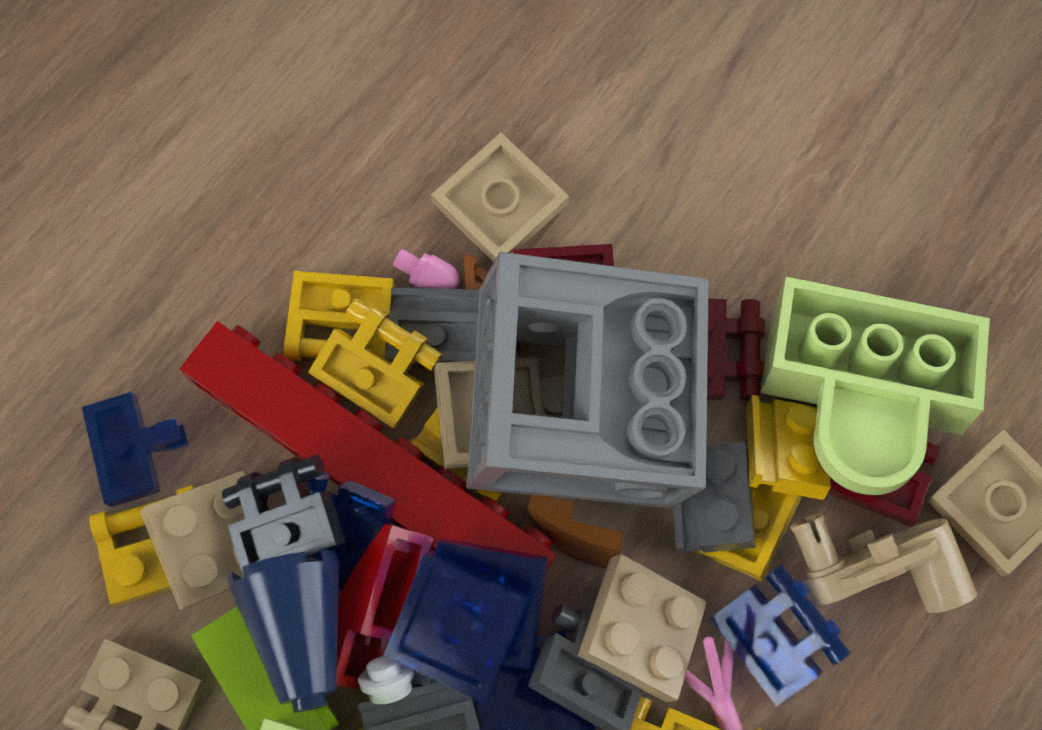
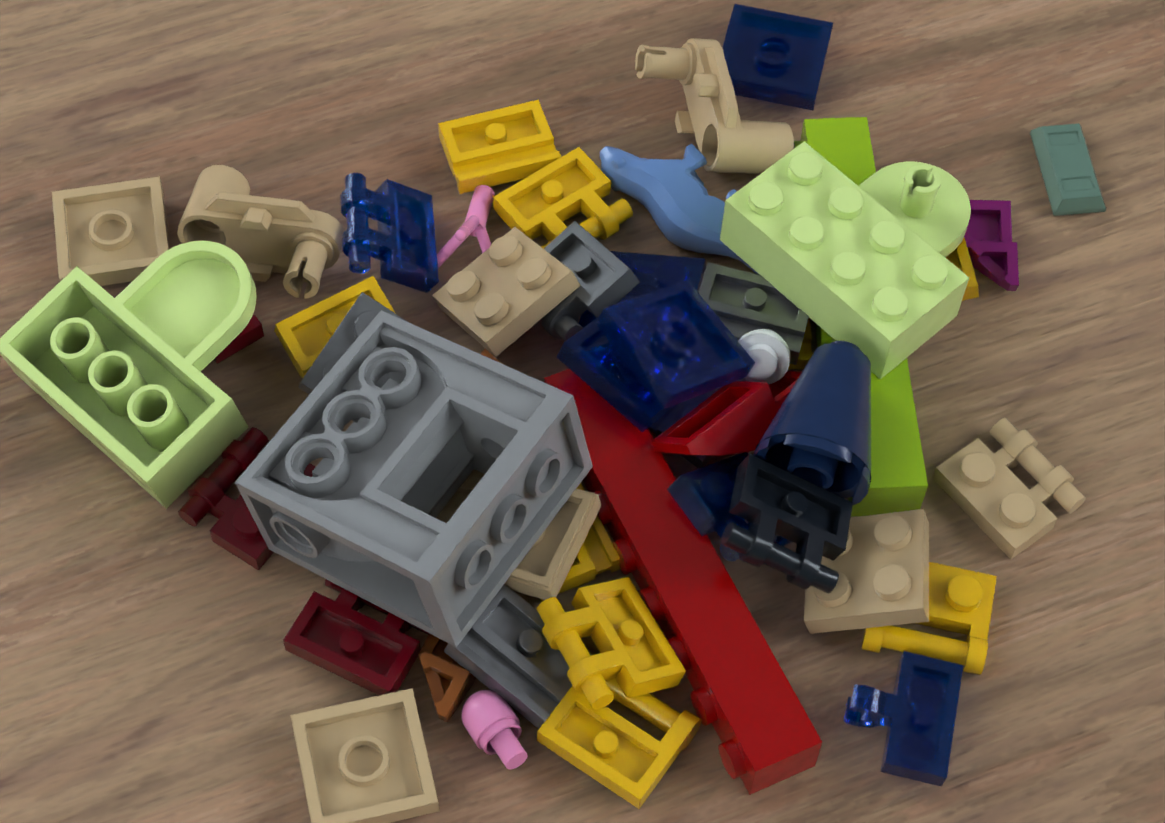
camera: 150 degrees left, 15 degrees down
(783, 448) = (267, 362): yellow plate -> none

